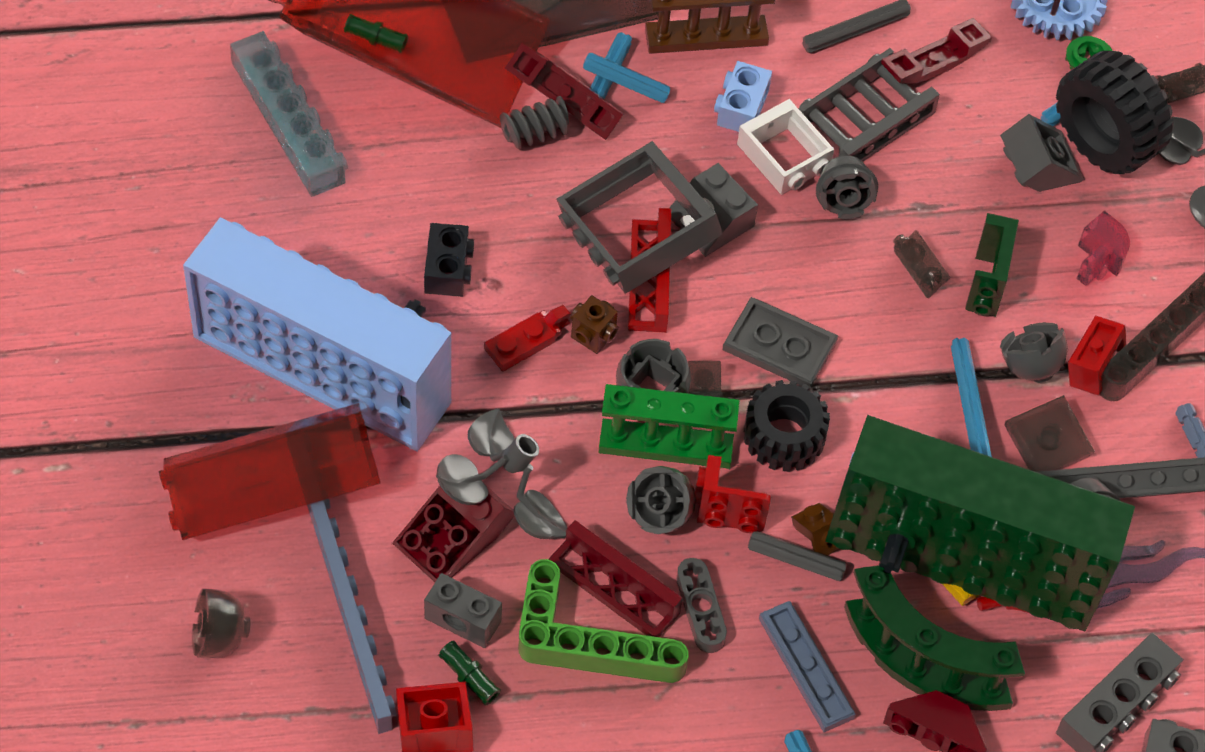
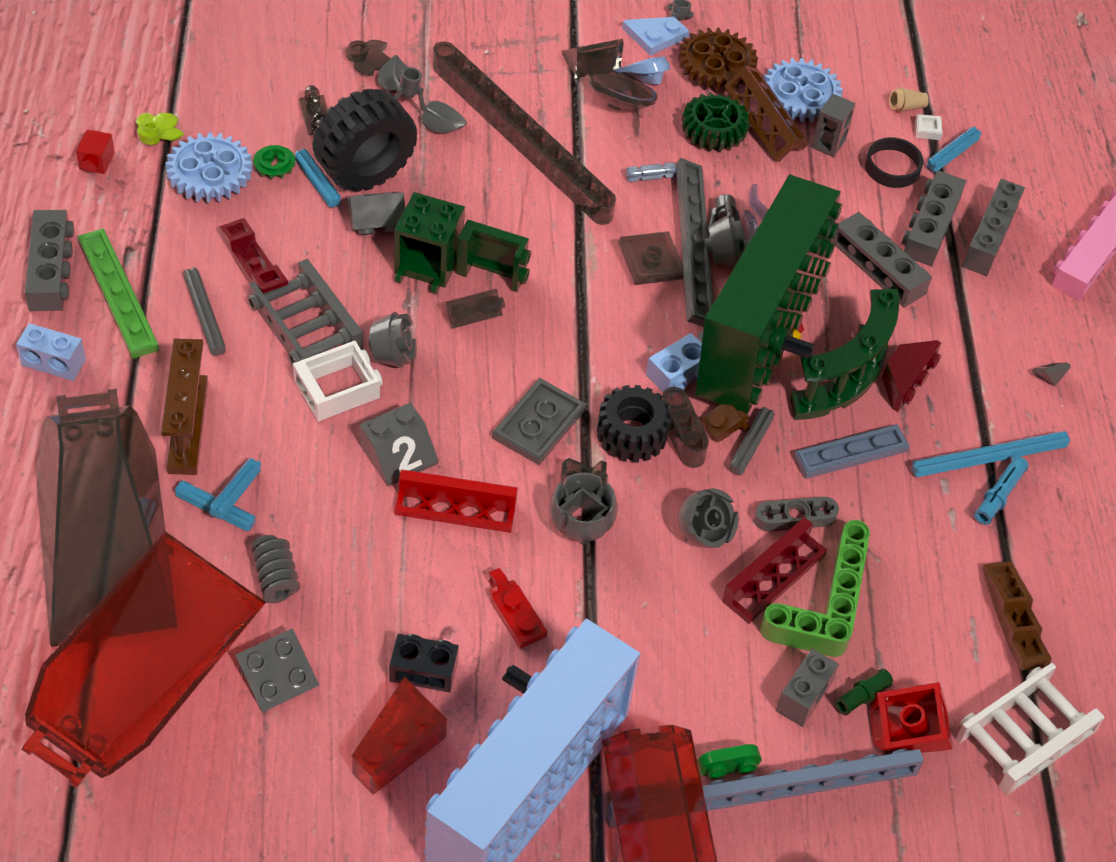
camera: 85 degrees left, 5 degrees down
(288, 114) = (207, 804): clear light blue brick -> none
(358, 243) = (398, 737): none -> clear red wedge
(368, 551) = (729, 760): none -> green plate
(376, 33) = (138, 693): dark green pin -> none
(423, 141) = (276, 670): none -> dark grey hinge
(450, 533) = (717, 687): dark red slope -> none
(493, 438) = (710, 619): dark grey plant -> none
(554, 81) = (236, 541): dark red slope -> none
(594, 323) = (513, 549): reddish brown brick -> none
(619, 178) = (393, 452): dark grey window -> none
(666, 442) = (638, 501): green fence -> none
(728, 506) = (706, 475): red bracket -> none
(744, 95) = (275, 402): light blue brick -> none
(804, 468) = (685, 428): none -> clear smoke beam
(970, 396) = (639, 297): dark azure axle -> none
(994, 185) = (428, 240): none -> dark green container
(1036, 352) = (577, 244): dark grey cylinder -> none
(1094, 354) = (582, 210): red panel -> none
(1107, 248) = (474, 185): clear pink brick -> none
(1153, 516) = (724, 206): none -> dark grey plant

